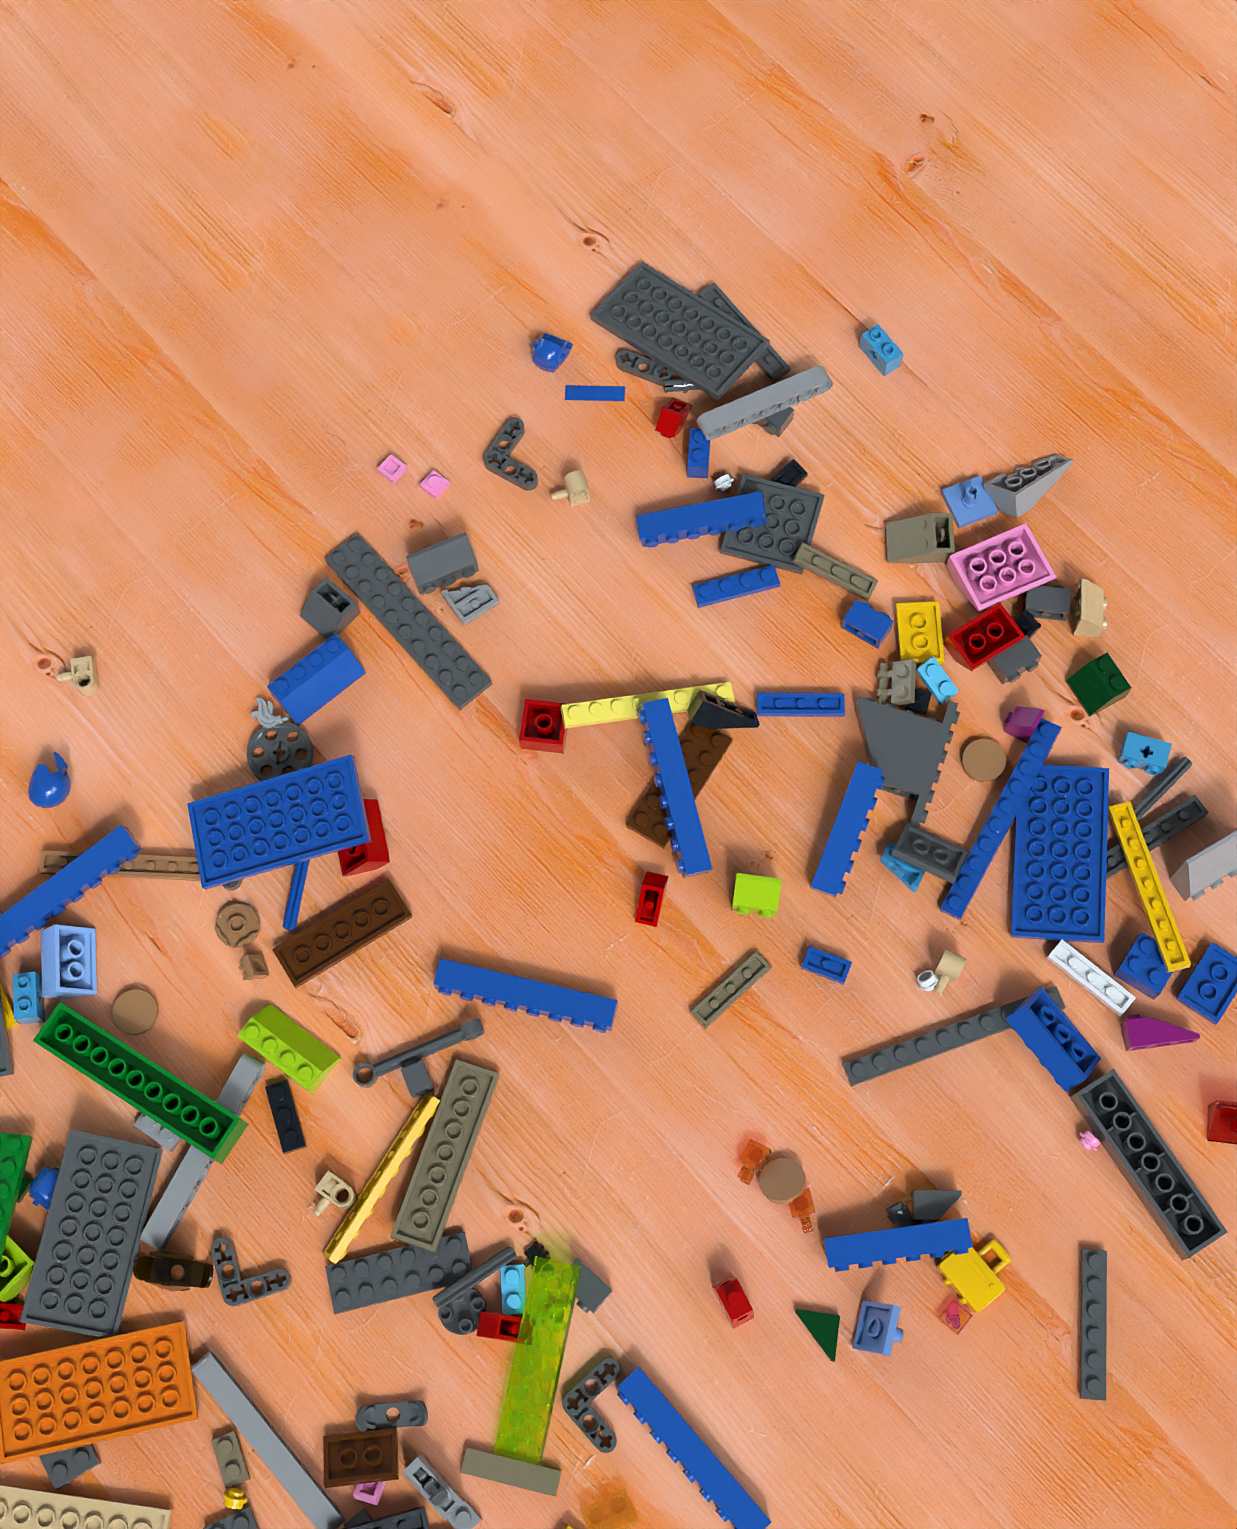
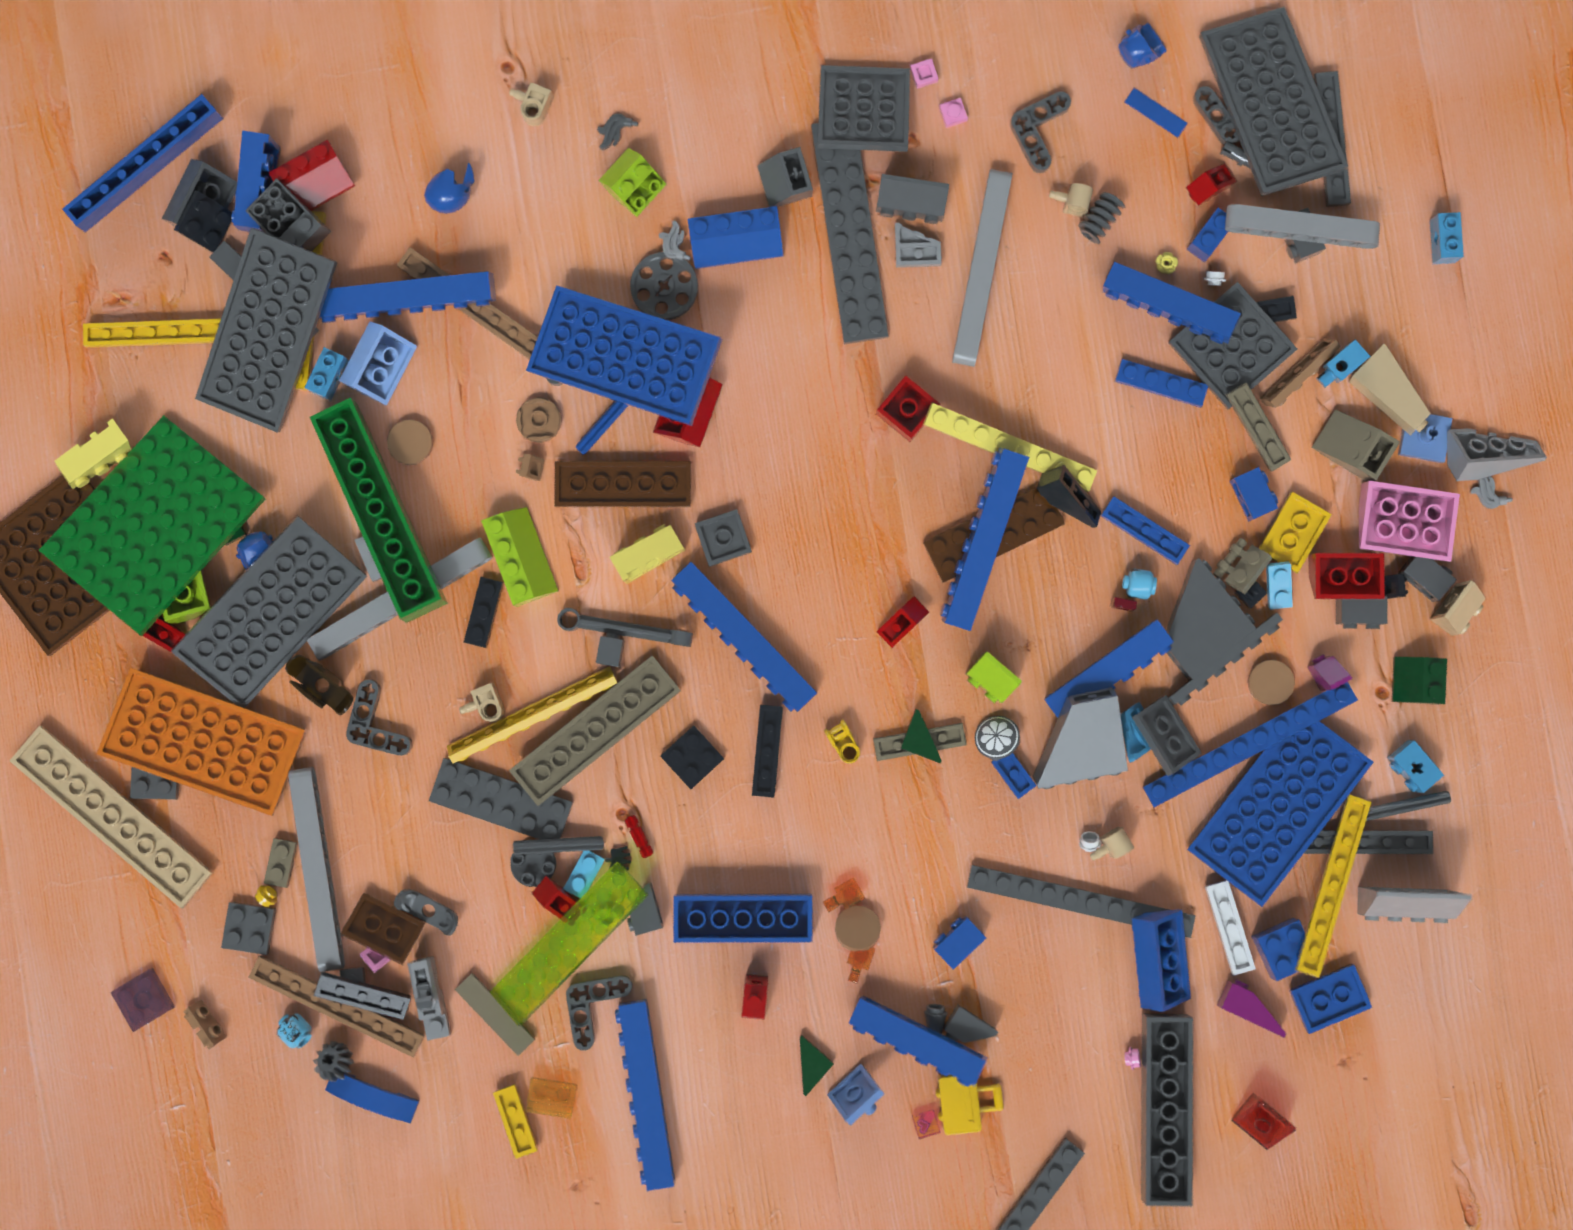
camera: 30 degrees right, 15 degrees up
(161, 658) = (612, 129): none -> dark grey piece
(203, 687) = (632, 181): none -> lime slope
(360, 521) = (864, 108): none -> dark grey plate
(398, 976) = (647, 553): none -> light yellow wedge
(456, 924) = (723, 538): none -> dark grey plate
(534, 585) = (982, 267): none -> light grey beam
(541, 1225) = (638, 836): none -> red axle
(545, 1126) = (692, 757): none -> black plate
(603, 490) = (1099, 216): none -> dark grey piece
(606, 1078) = (767, 751): none -> black plate
(662, 1027) = (842, 740): none -> yellow piece
(677, 1235) = (742, 918): none -> blue brick
(678, 500) = (1162, 267): none -> light yellow plate
(730, 987) = (919, 739): none -> dark green tile
(792, 943) = (997, 737): none -> dish
(822, 772) = (1123, 604): none -> dark red tile
(825, 747) = (1139, 584): none -> medium azure head
(837, 519) = (1300, 372): none -> medium nougat plate
(866, 899) = (1084, 741): none -> slope
(868, 479) = (1349, 357): none -> dark azure torso
(876, 1136) = (958, 942): none -> blue brick
(917, 482) = (1391, 391): none -> tan slope
(1046, 515) = (1486, 493): none -> light grey piece

